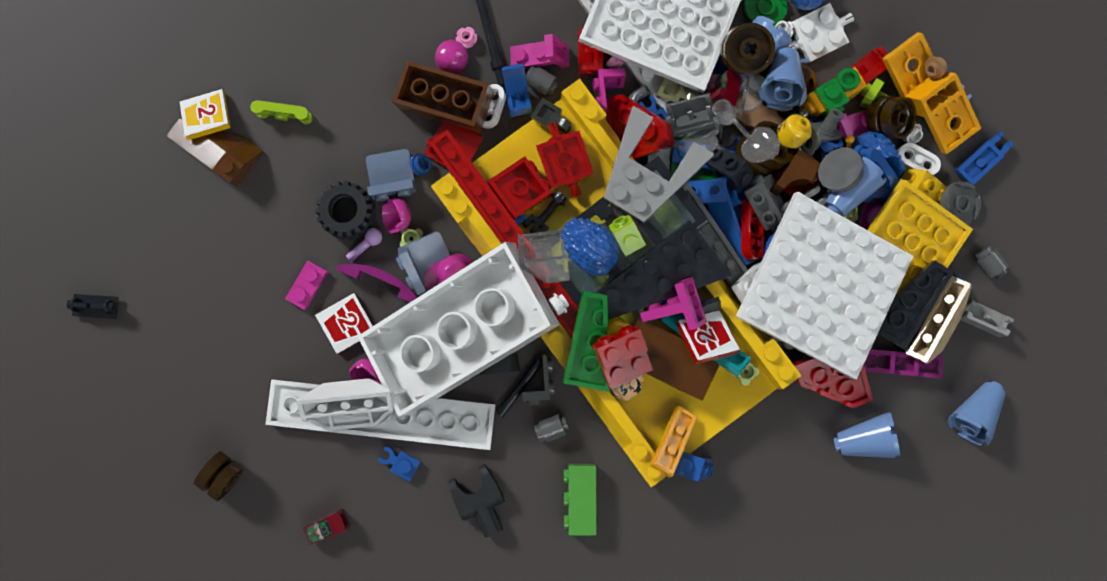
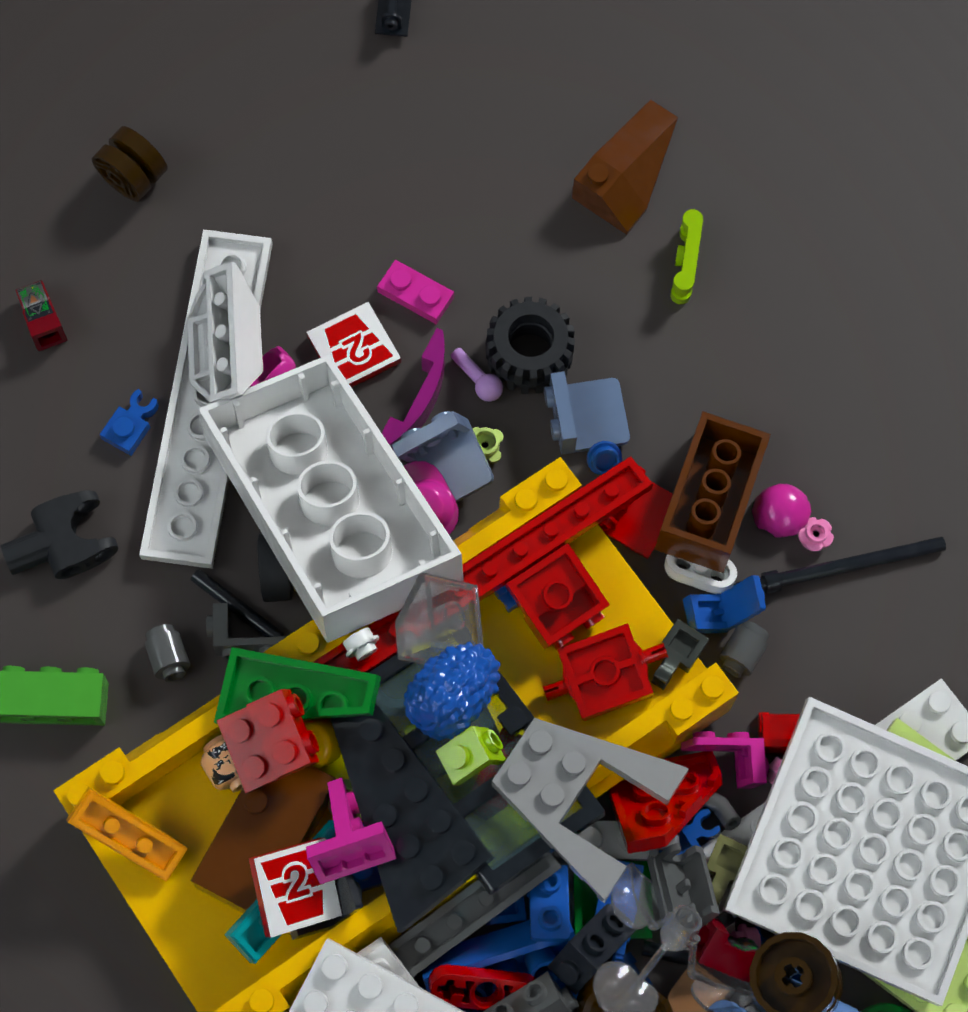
camera: 90 degrees right, 15 degrees down
(205, 114) = (681, 149): tile -> none
(396, 215) = (521, 421): dark pink hair -> none
(542, 53) = (789, 651): dark pink bracket -> none
(558, 199) = (539, 661): black hinge -> none
(694, 467) = (81, 876): blue bracket -> none
(752, 372) = (236, 978): yellowish green plate -> none

